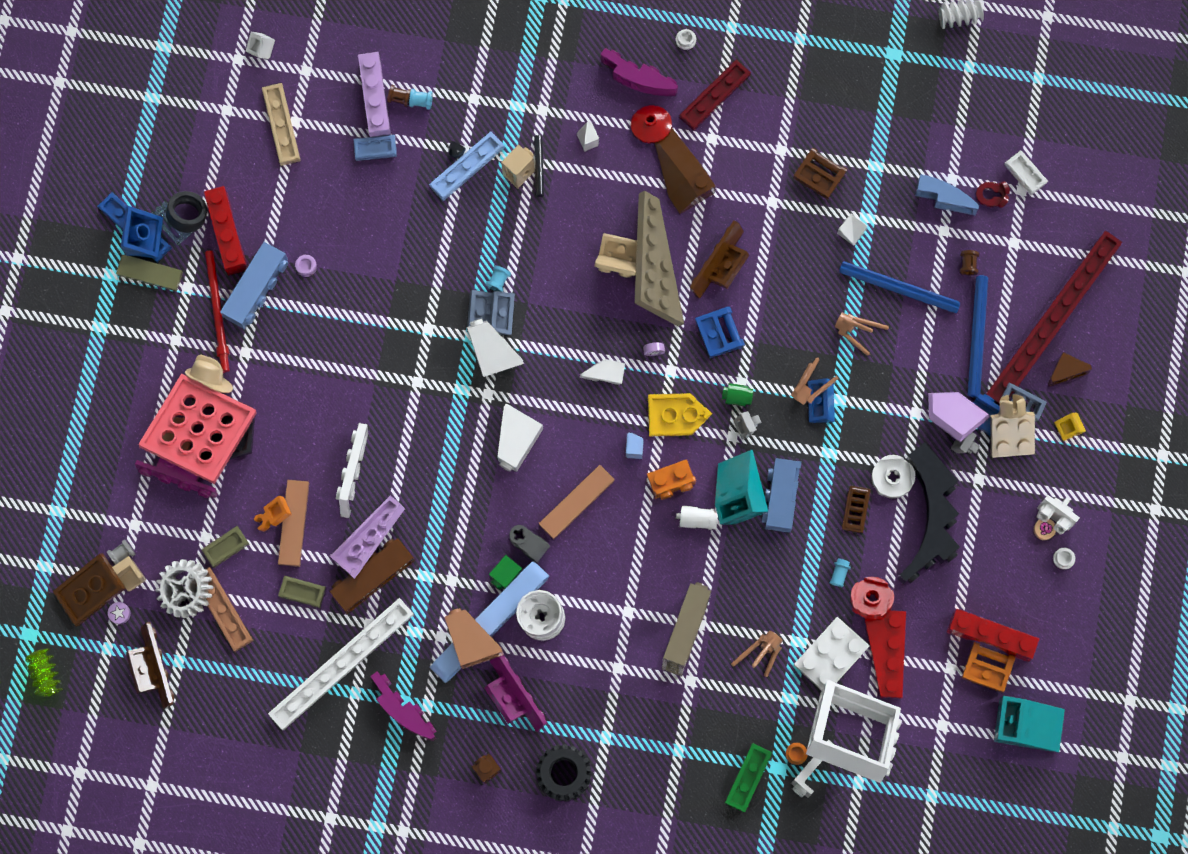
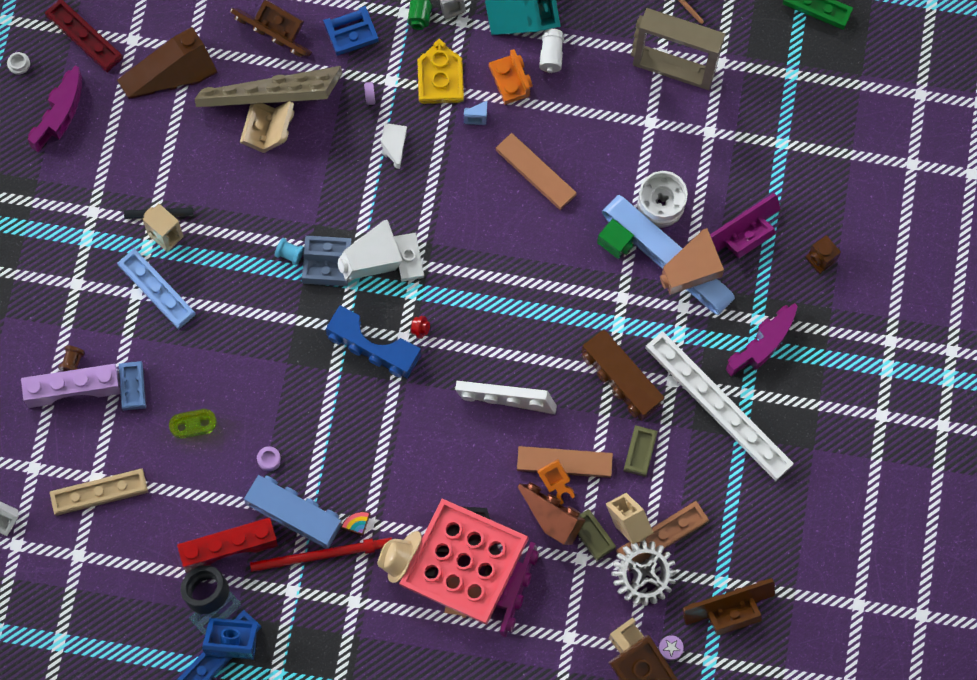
camera: 95 degrees left, 5 degrees down
(121, 552) = (604, 647): light grey bush -> none
(149, 272) = (274, 633): olive tile -> none
(231, 575) = (629, 518): none -> tan brick
(241, 508) = (555, 520): none -> copper slope
(244, 341) = (356, 523): none -> tile
(338, 200) = (193, 423): none -> clear neon green plate
(366, 538) = (583, 381): lavender wing -> none
(421, 99) = (77, 335): medium azure bush -> none
(422, 330) = (398, 356): none -> blue arch
(423, 395) = (420, 327): none -> red plate
(456, 150) = (137, 299): black hinge -> none
(493, 385) = (411, 263): none -> white plate
(516, 438) = (467, 230): white slope -> none
(532, 545) = (583, 215): dark grey piece -> none
(556, 754) = (828, 161): black tyre -> none
(588, 136) = (127, 161): white slope -> none
(653, 131) = (121, 105): red dish -> none

